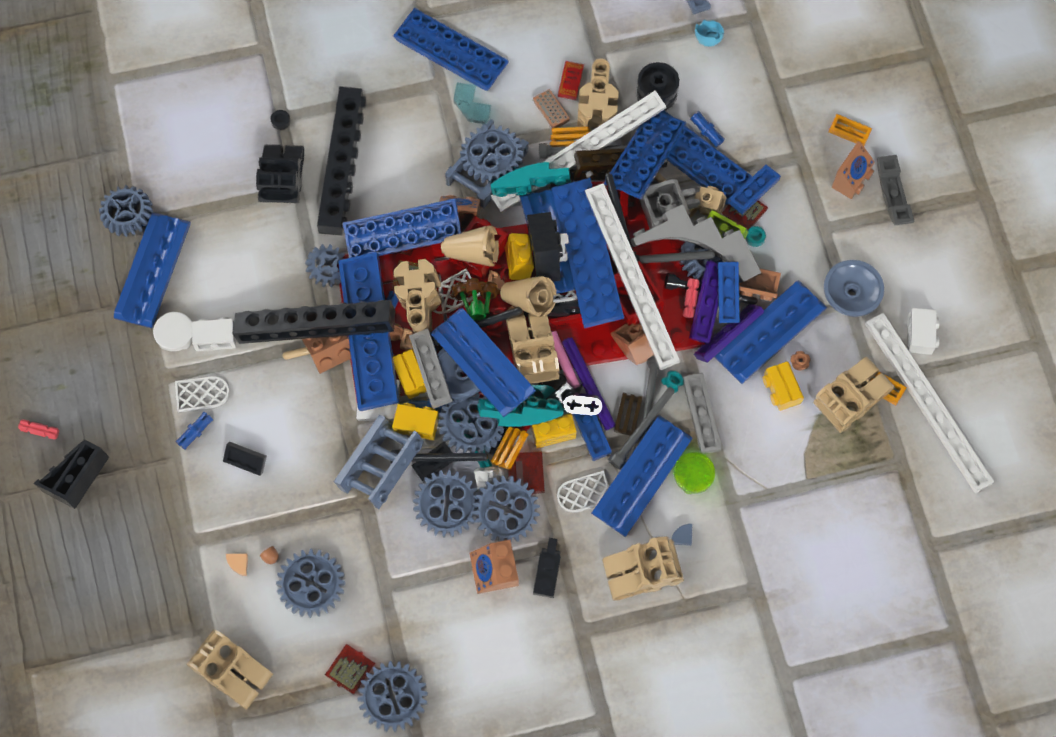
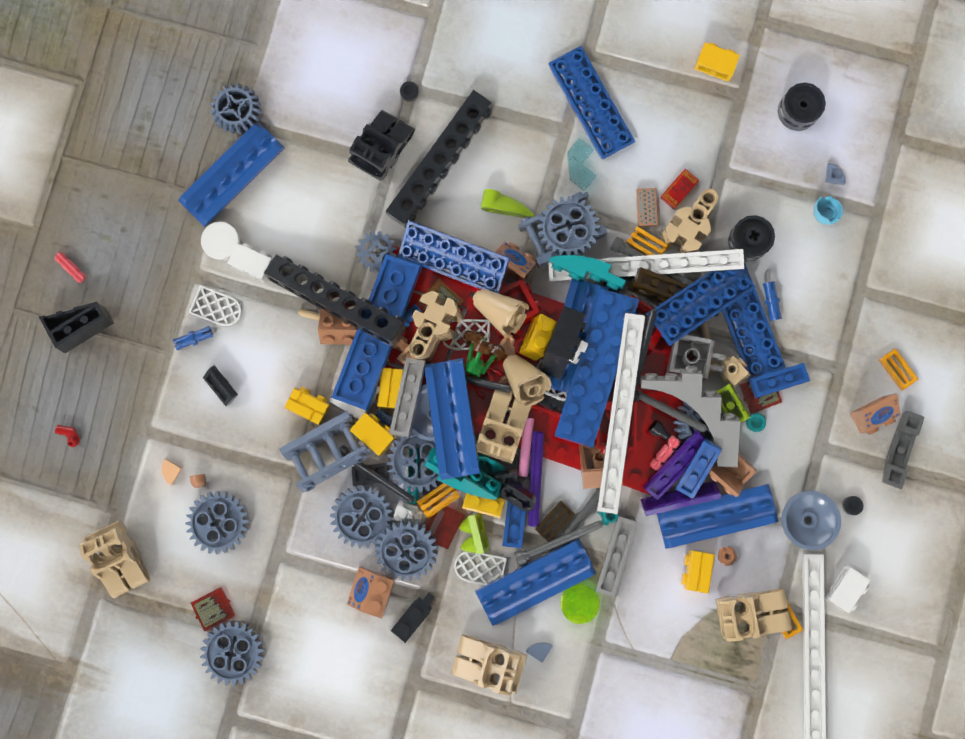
camera: 35 degrees right, 15 degrees up
(119, 580) = (72, 436): none -> red arm
(339, 432) = (307, 405): none -> yellow brick
(419, 171) = (501, 204): none -> lime piece
(567, 470) = (478, 542): none -> lime tile
(882, 261) = (852, 505): none -> black tile

